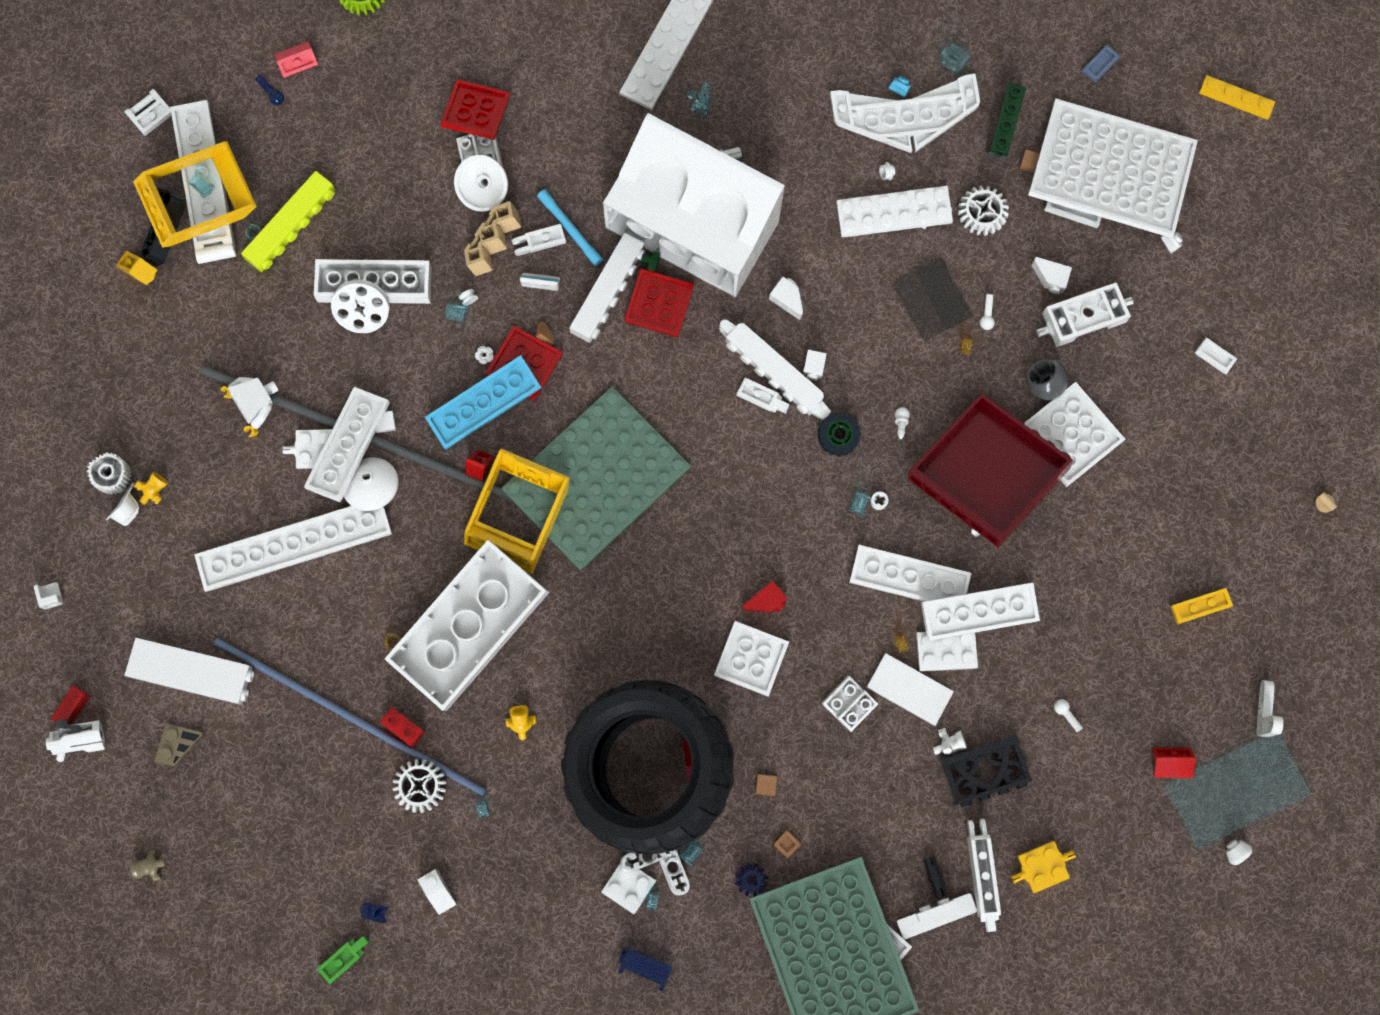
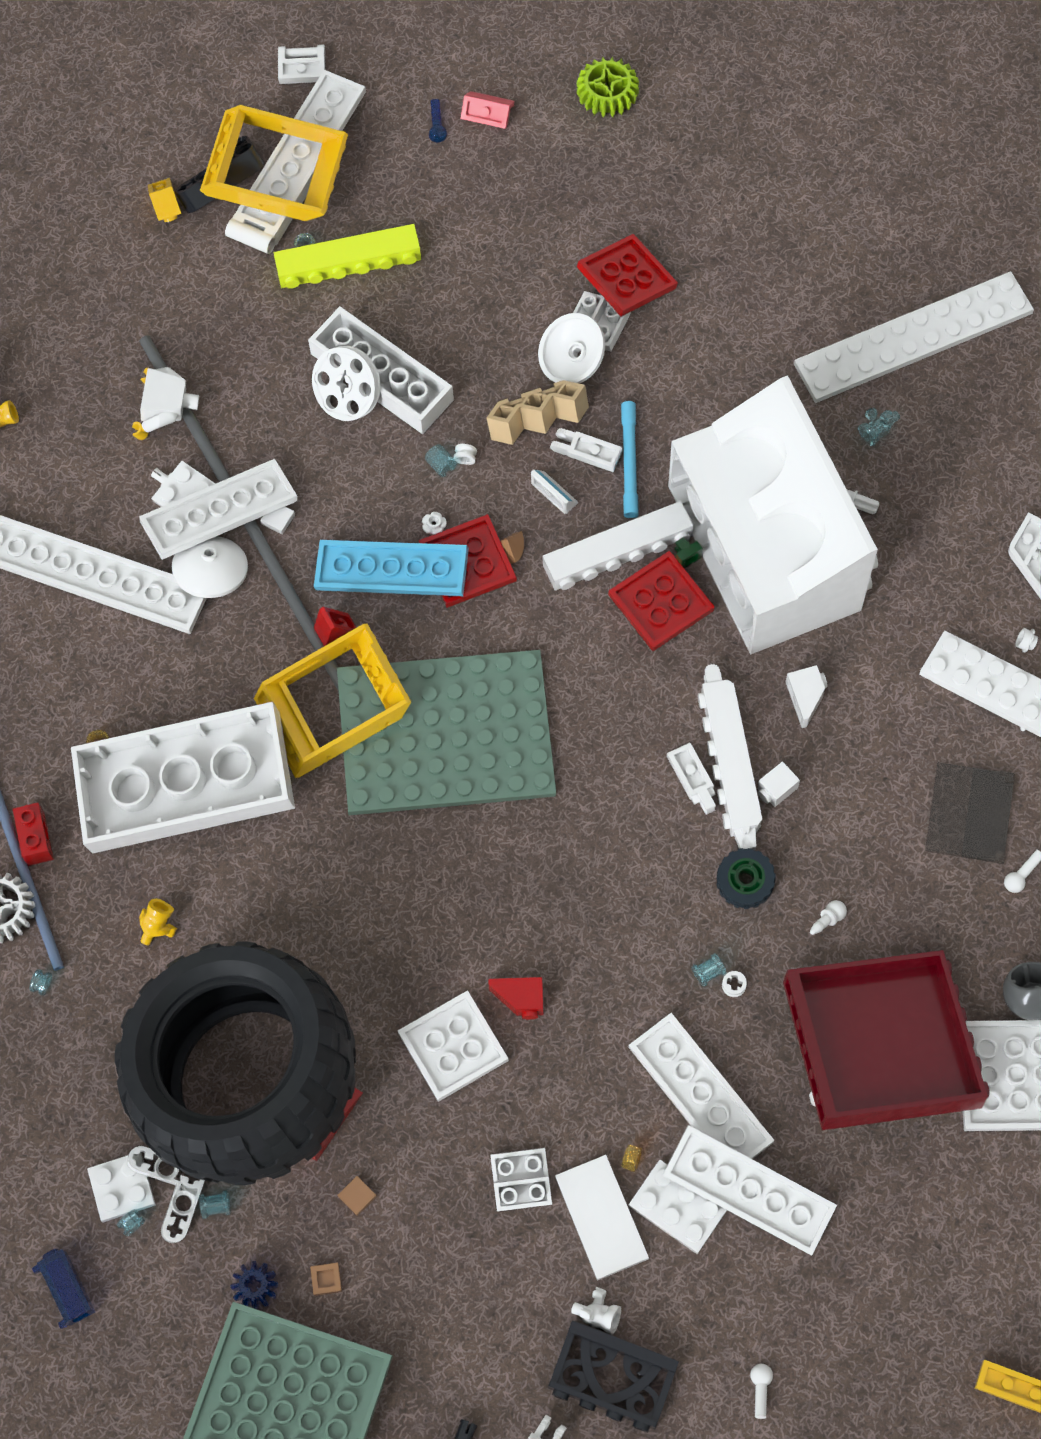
camera: 45 degrees right, 10 degrees down
(201, 184) = (289, 159): clear light blue beam -> none
(966, 345) = (969, 888): clear yellow axle -> none

